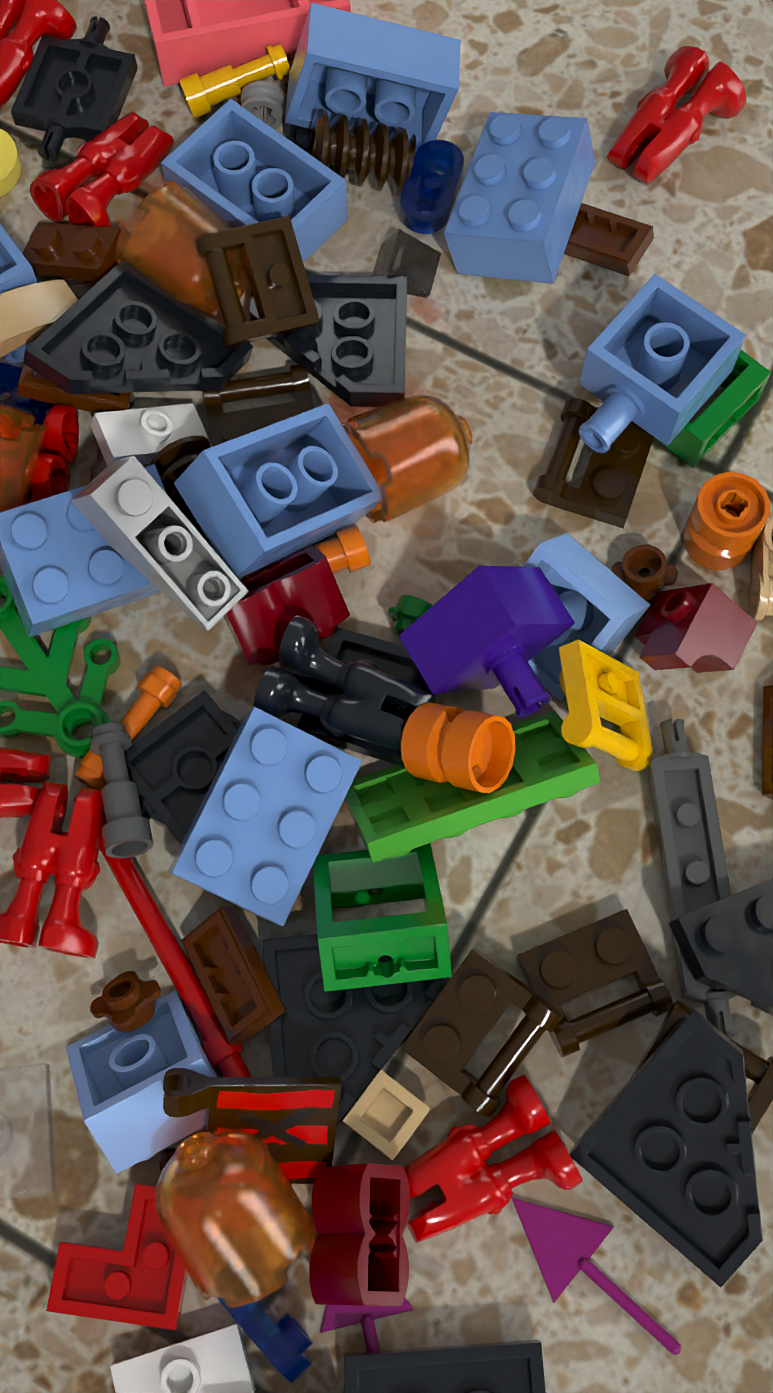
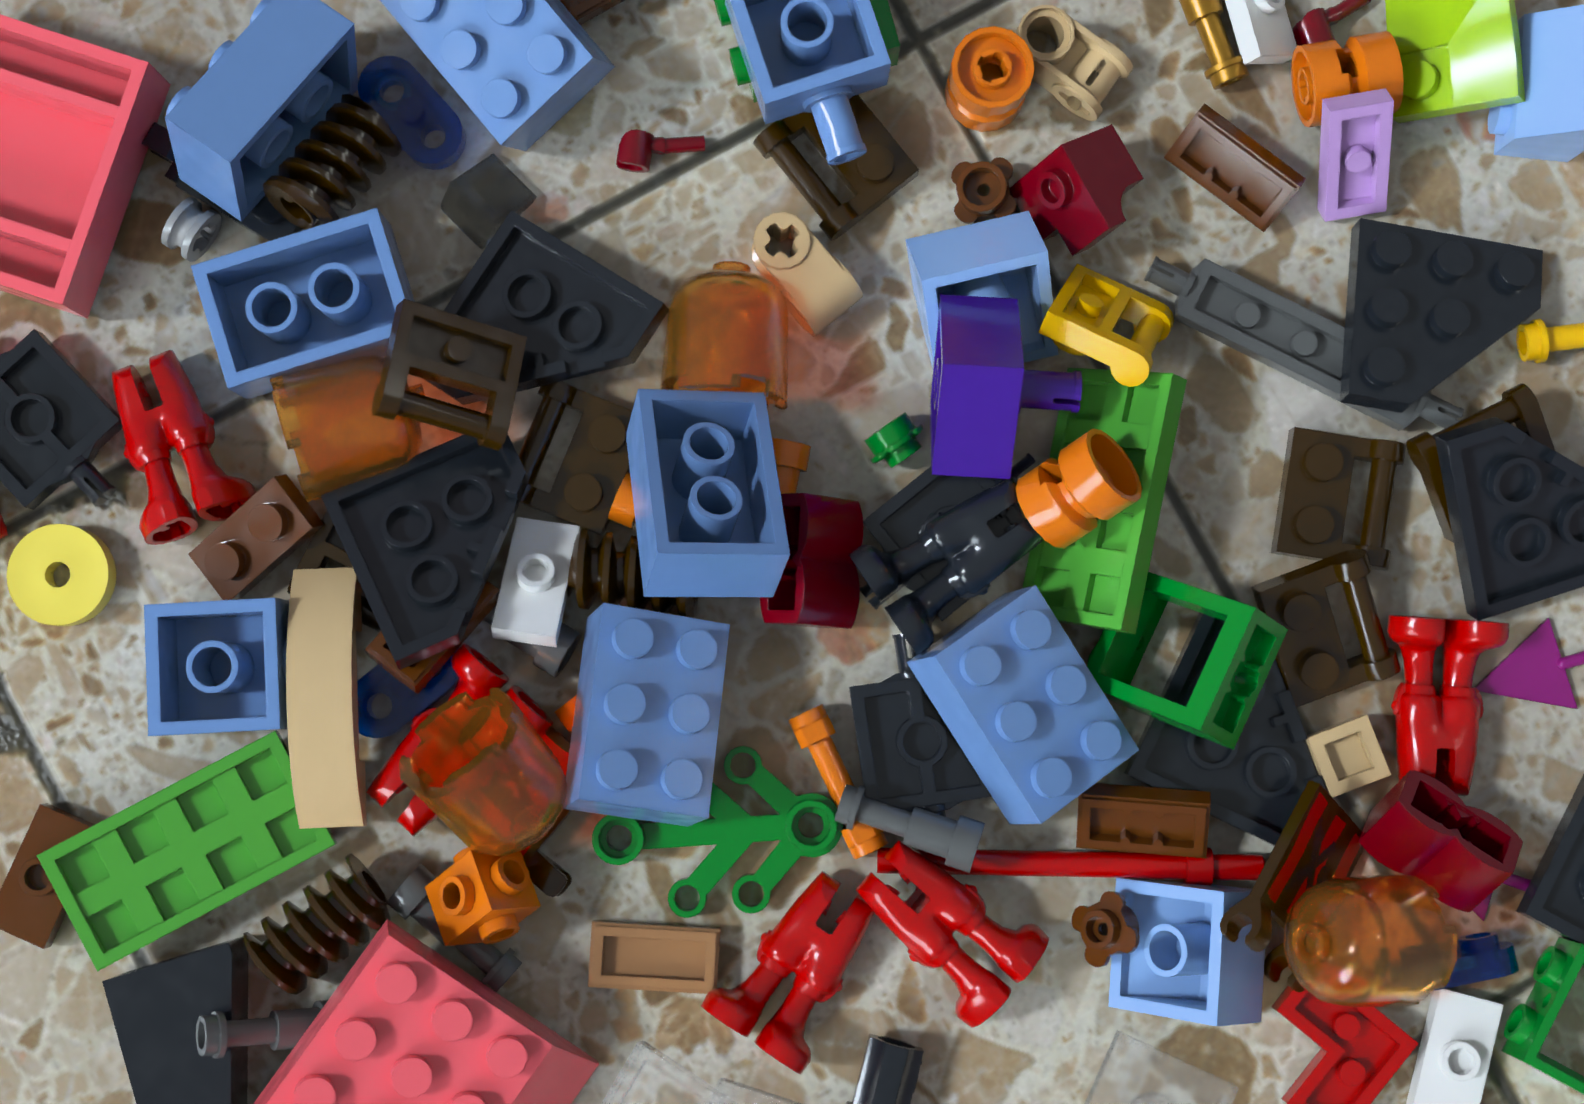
camera: 60 degrees left, 15 degrees up
(159, 541) = (704, 649): light grey slope -> none
(226, 81) = (135, 249): yellow piece -> none
(494, 484) = (811, 280): none -> tan piece
(507, 333) = (638, 145): none -> dark red hand

